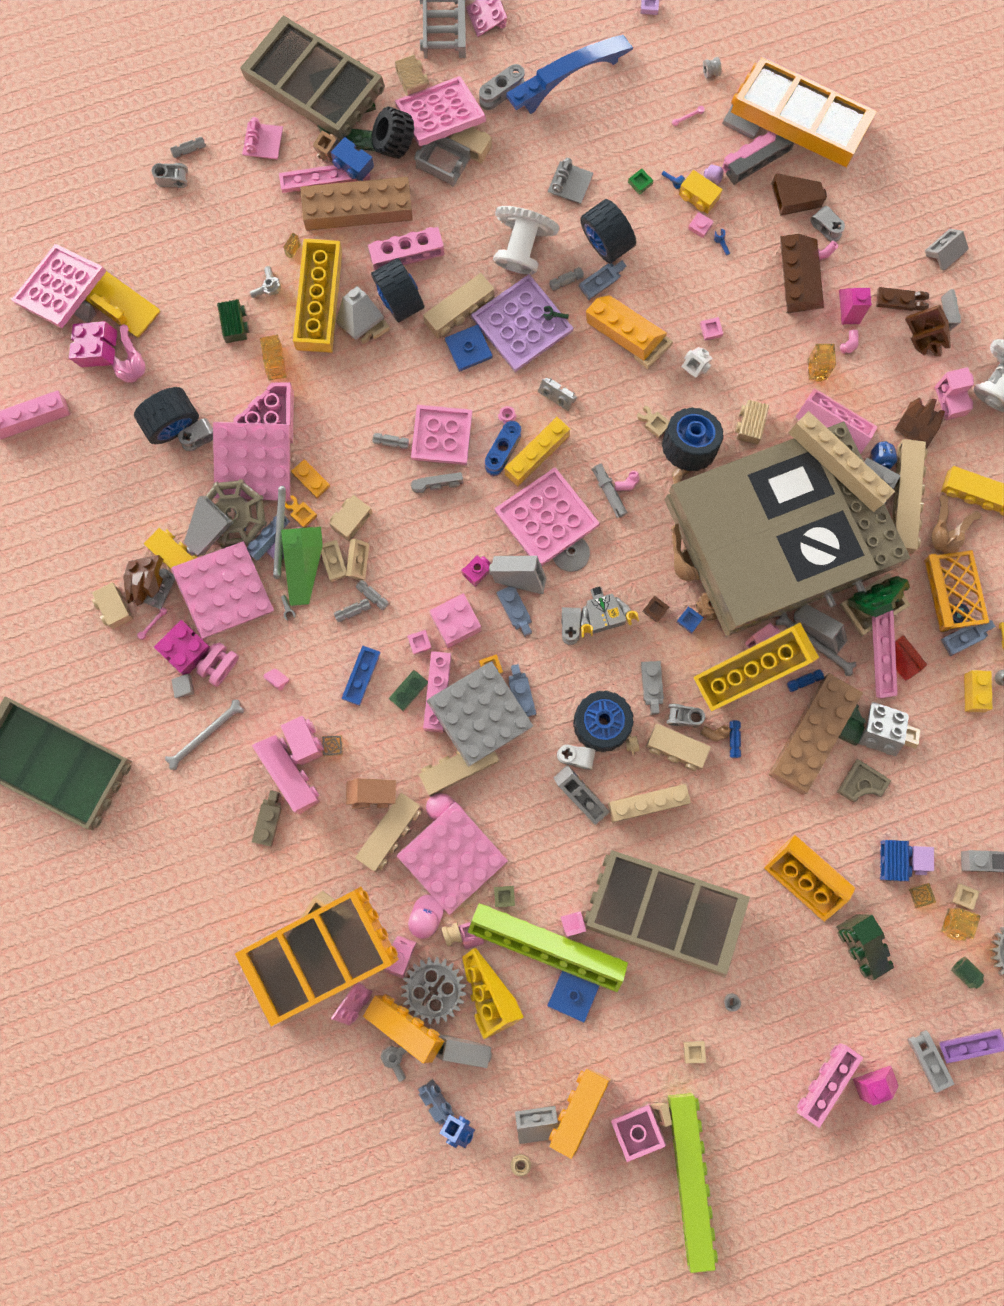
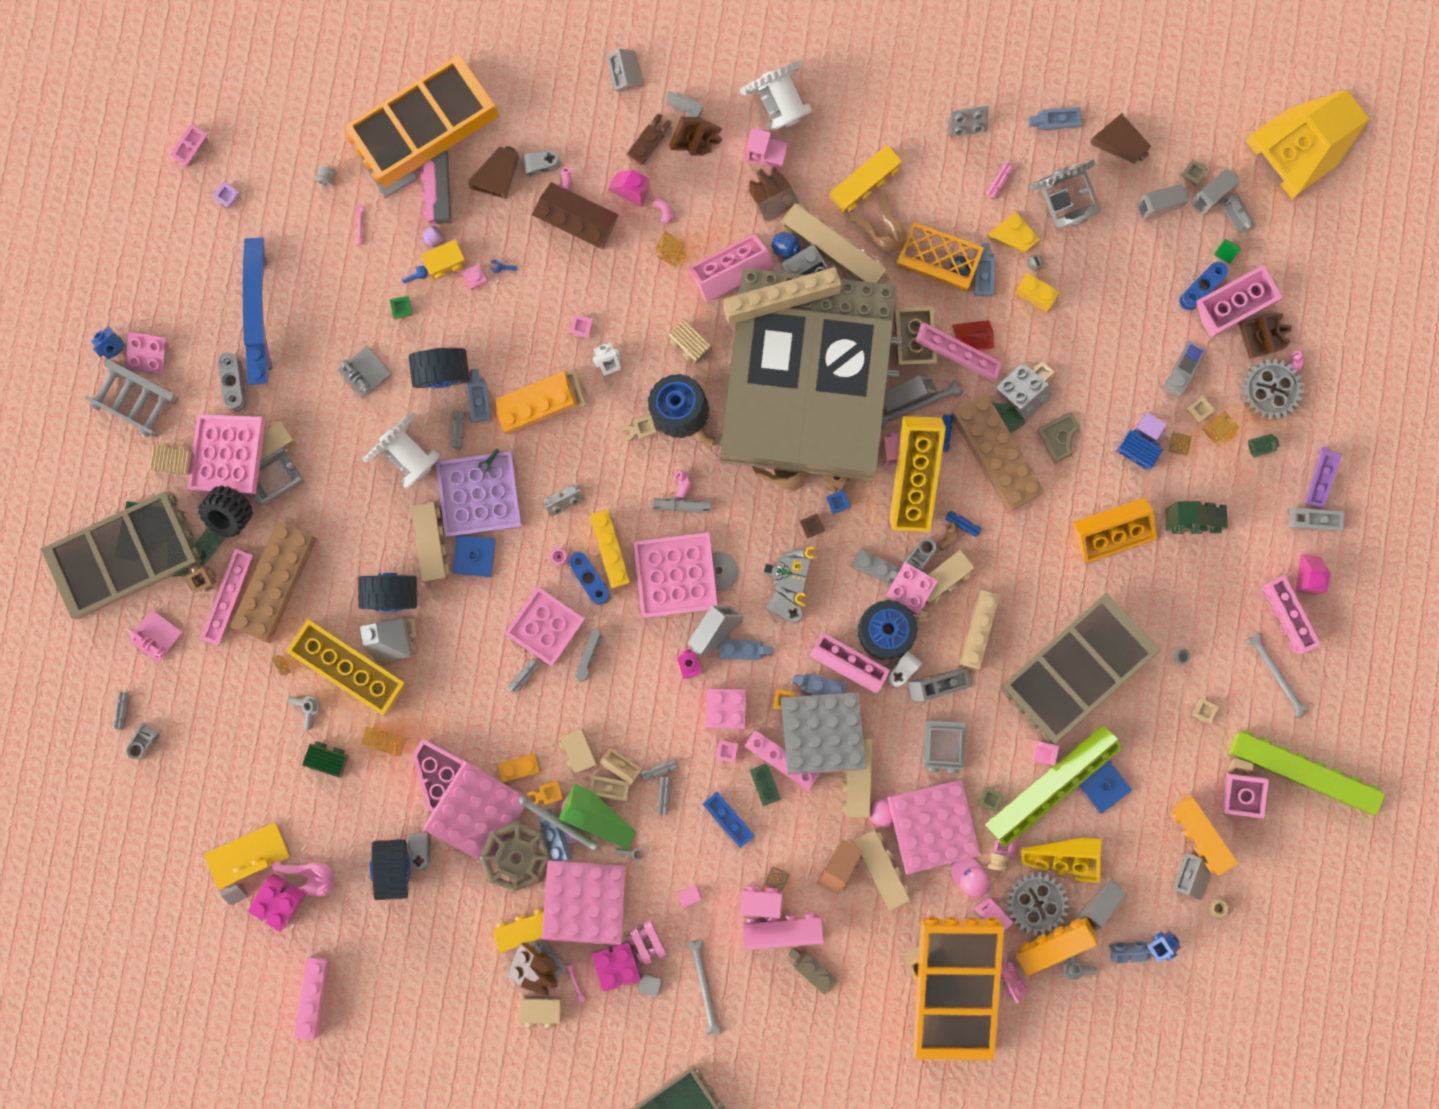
camera: 60 degrees left, 5 degrees up
(58, 285) = (199, 905): bright pink plate -> none
(205, 526) = (516, 886): light grey slope -> none
(354, 162) = (231, 564): blue brick -> none
(415, 253) = (349, 571): bright pink brick -> none
(528, 828) = (944, 746): none -> window
(555, 704) = (849, 663): none -> bright pink brick
(652, 723) = (912, 588): none -> bright pink hinge
(747, 1142) = (1256, 642): none -> light grey piece
(880, 597) = (916, 331): dark green plate -> none

